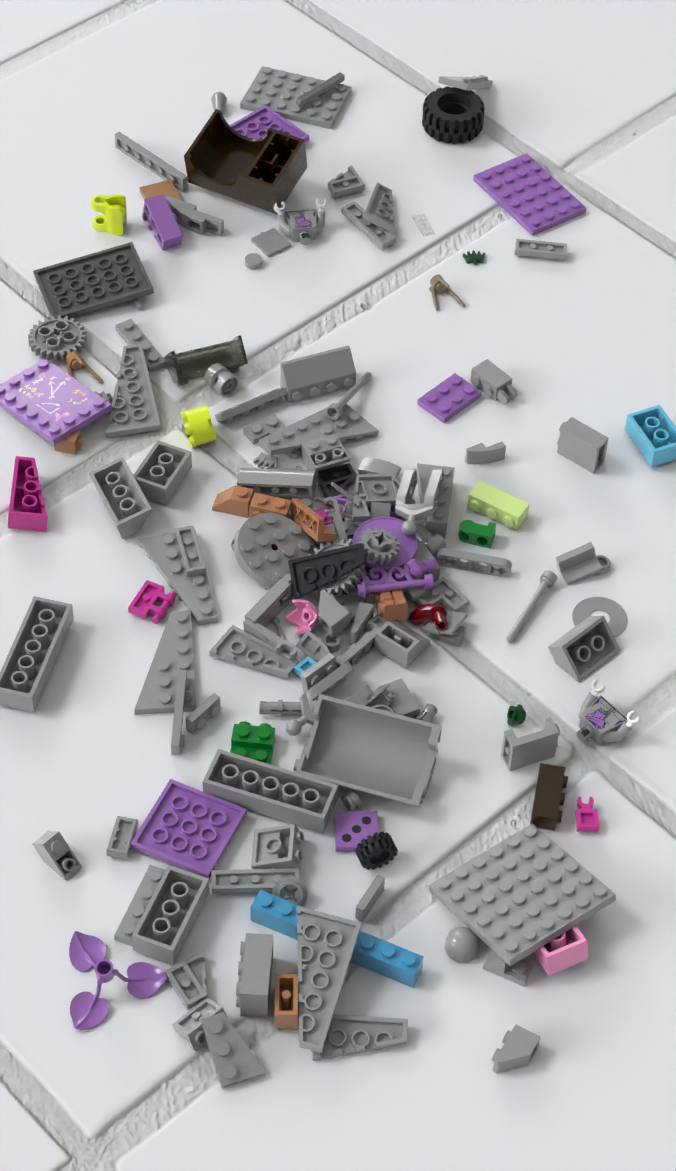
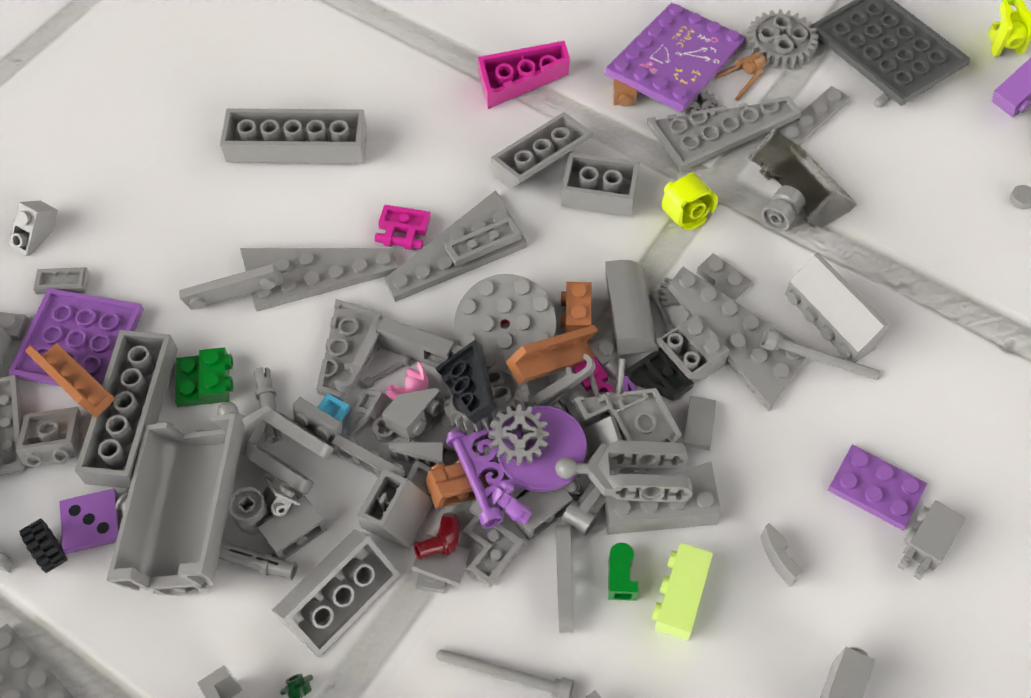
camera: 80 degrees right, 10 degrees up
(199, 717) = (246, 317): light grey plate -> none
(234, 501) = (584, 268): nougat slope -> none
(239, 815) = (73, 379): none -> nougat fence
(257, 402) = (749, 245): light grey plate -> none
(452, 685) = (336, 592): none -> light grey slope

